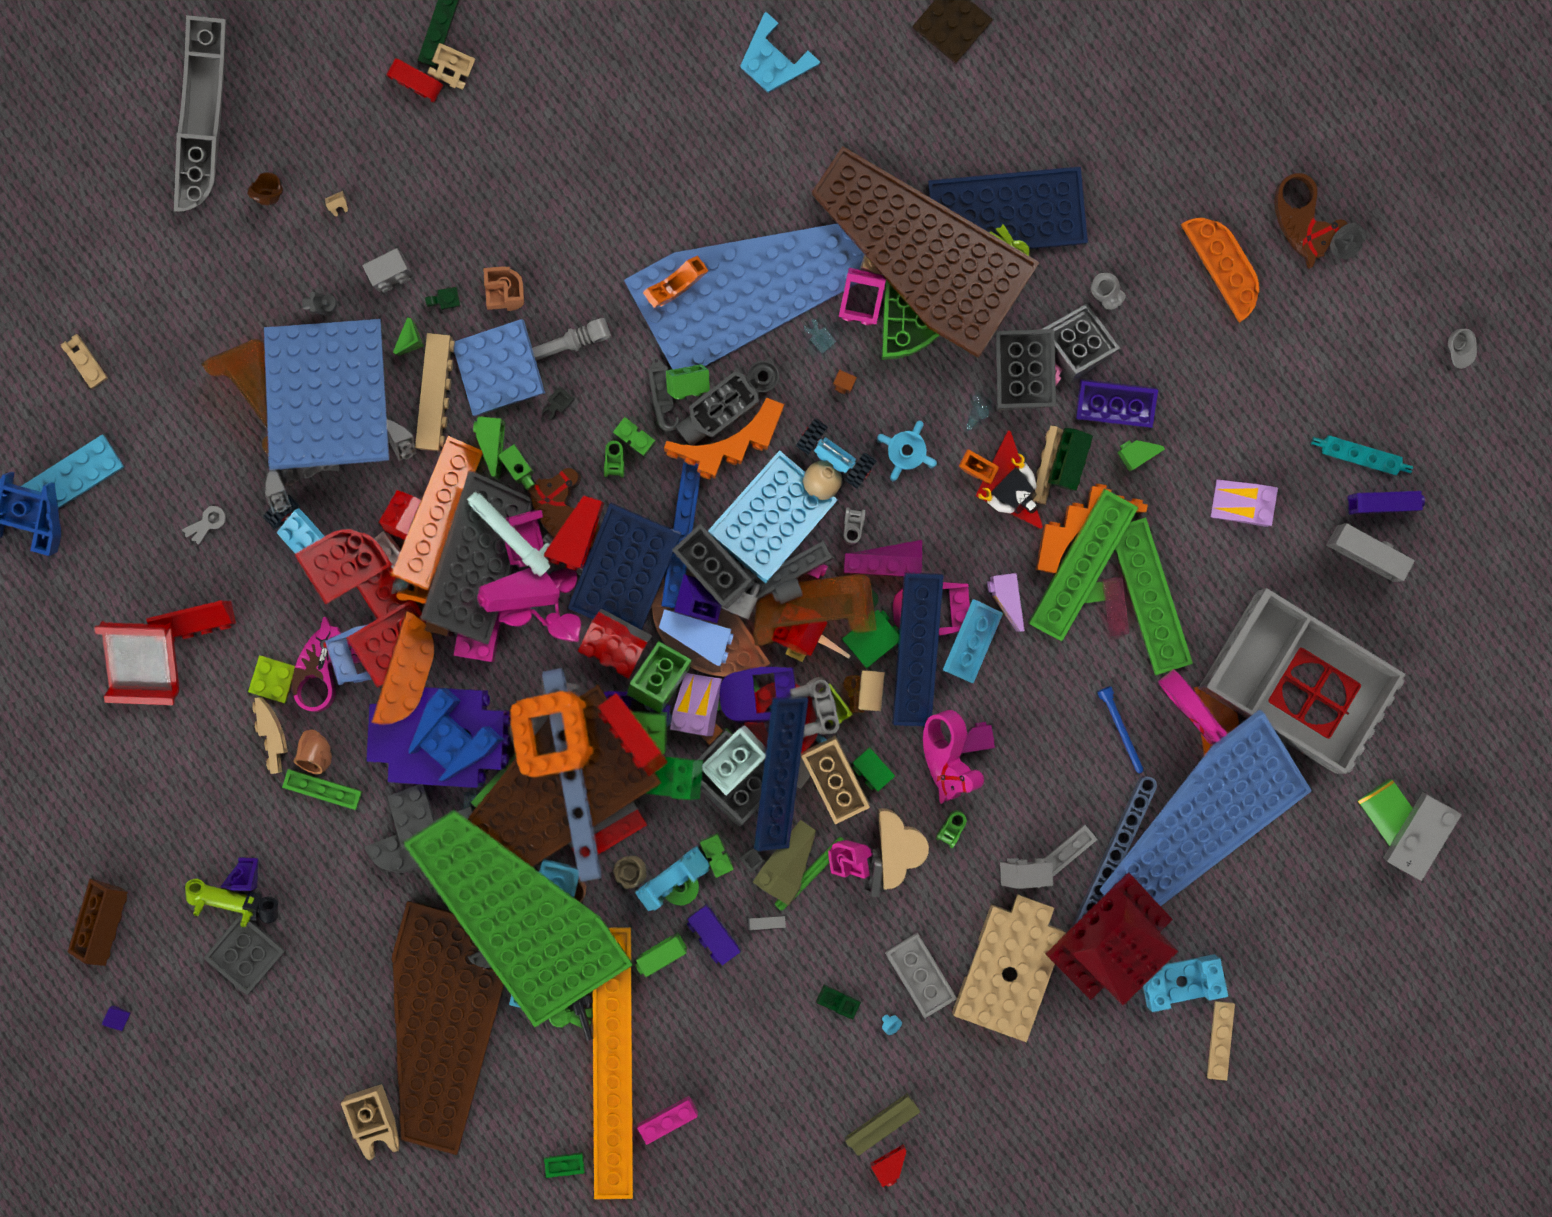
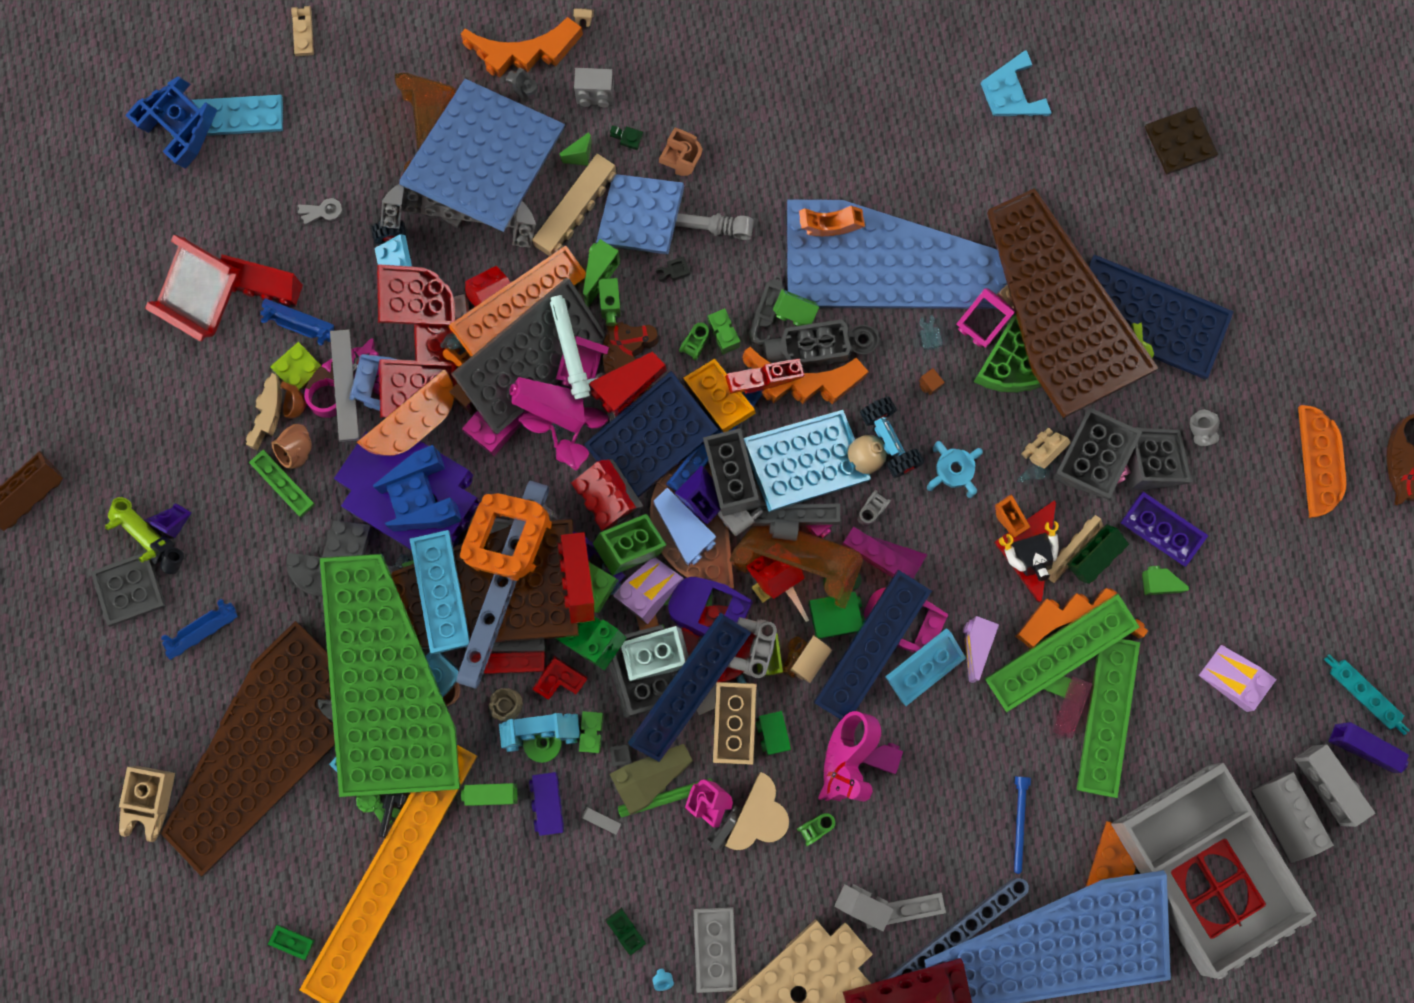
camera: 30 degrees right, 10 degrees down
(247, 638) = (296, 321): none -> blue piece
(289, 712) = (294, 401): none -> dark orange piece
(305, 271) = (524, 54): none -> orange arch
(325, 674) = (343, 384): none -> light grey tile
(328, 954) = (199, 629): none -> blue piece
(521, 811) = (440, 592): none -> medium azure plate
(659, 821) = (558, 674): none -> red plate
(663, 499) = (712, 391): none -> light orange plate
(667, 1120) = (408, 953): dark pink brick -> none
(696, 463) = (765, 377): none -> slope
(981, 387) = (1048, 451): none -> tan plate
(1191, 706) = (1098, 832): dark pink animal -> none
(1348, 598) = (1292, 817): none -> light grey slope

